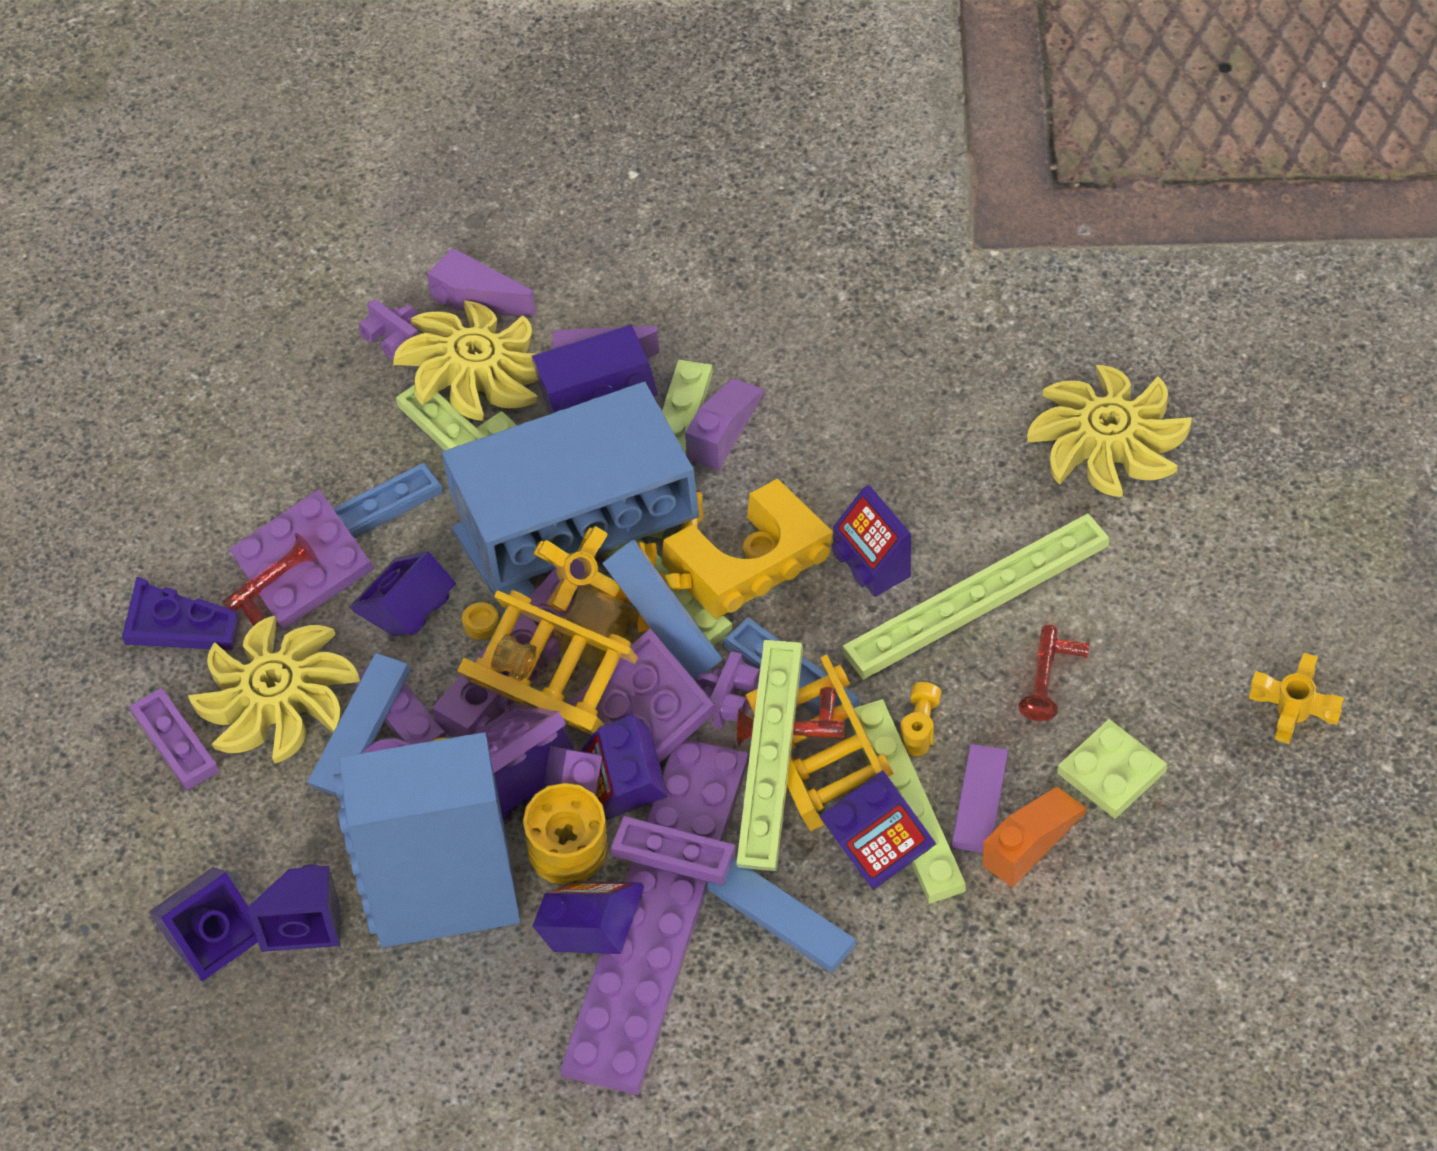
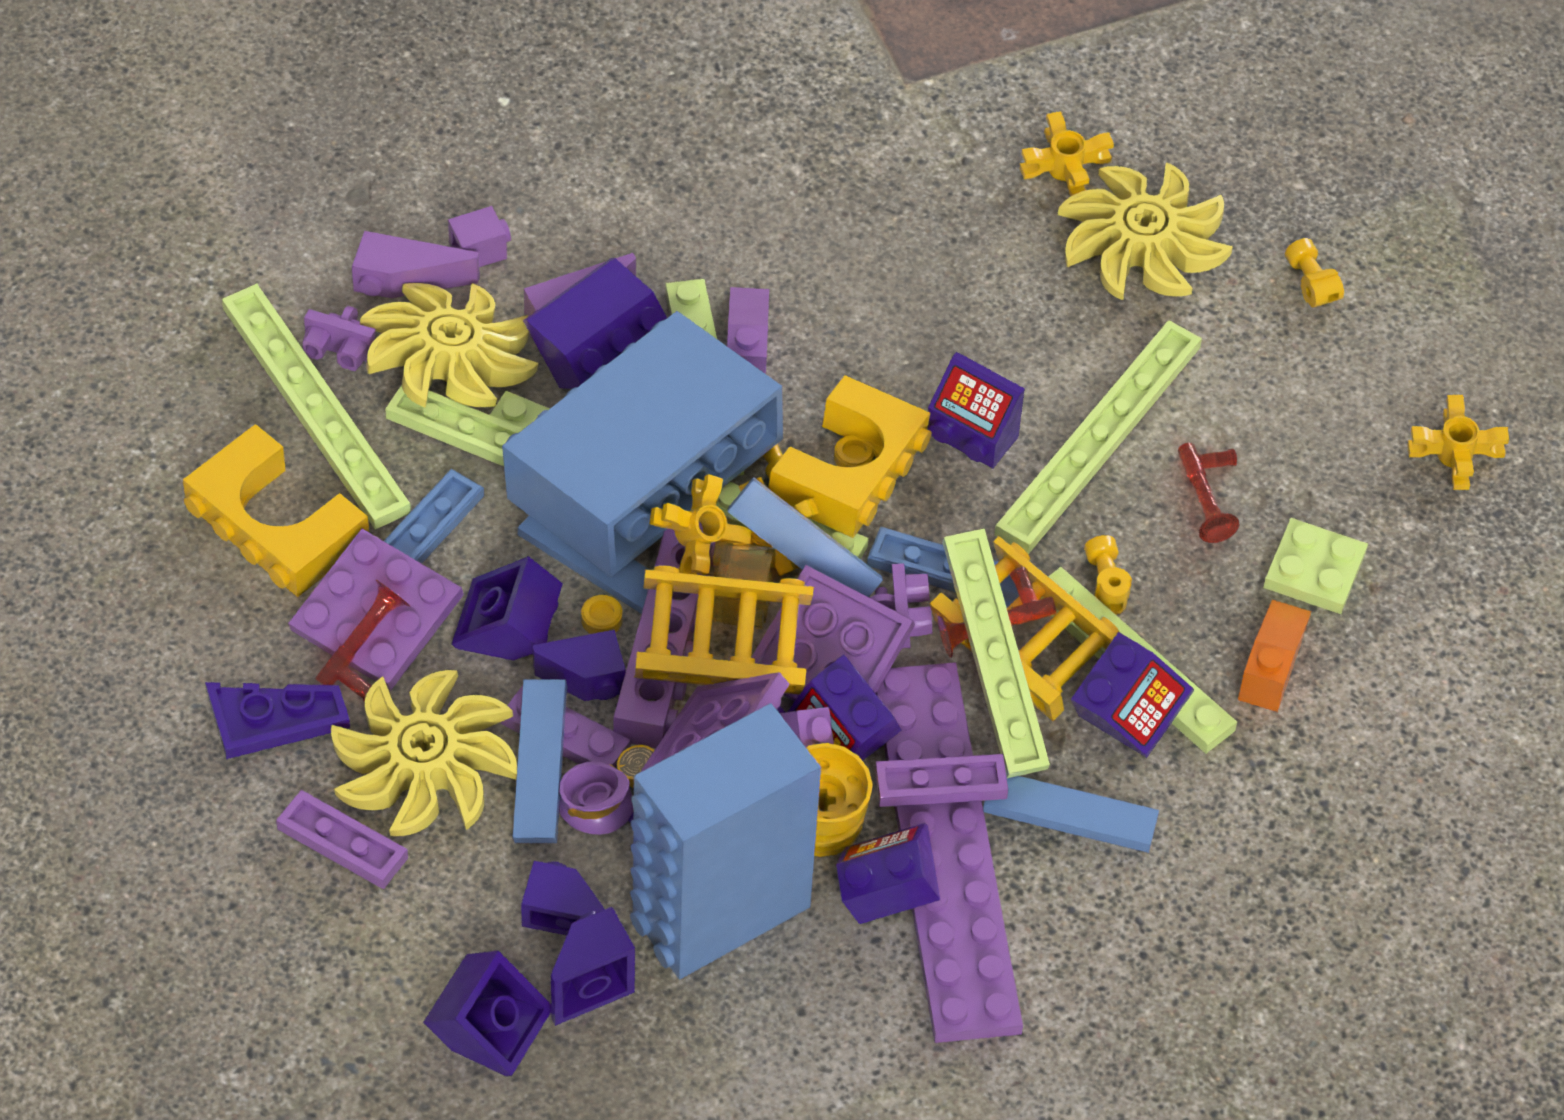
camera: 30 degrees left, 0 degrees up
(240, 424) = (291, 554): none -> yellow arch
(311, 840) = (556, 898): none -> dark purple slope
(345, 381) = (316, 406): none -> yellowish green plate
(436, 654) = (587, 663): none -> dark purple slope
(513, 657) = (694, 634): clear yellow wheel -> none
(547, 278) = (480, 233): none -> medium lavender brick
(979, 797) = (1205, 635): medium lavender tile -> none
(1074, 345) = (1066, 154): none -> yellow pin
(1242, 521) = (1317, 284): none -> yellow leg

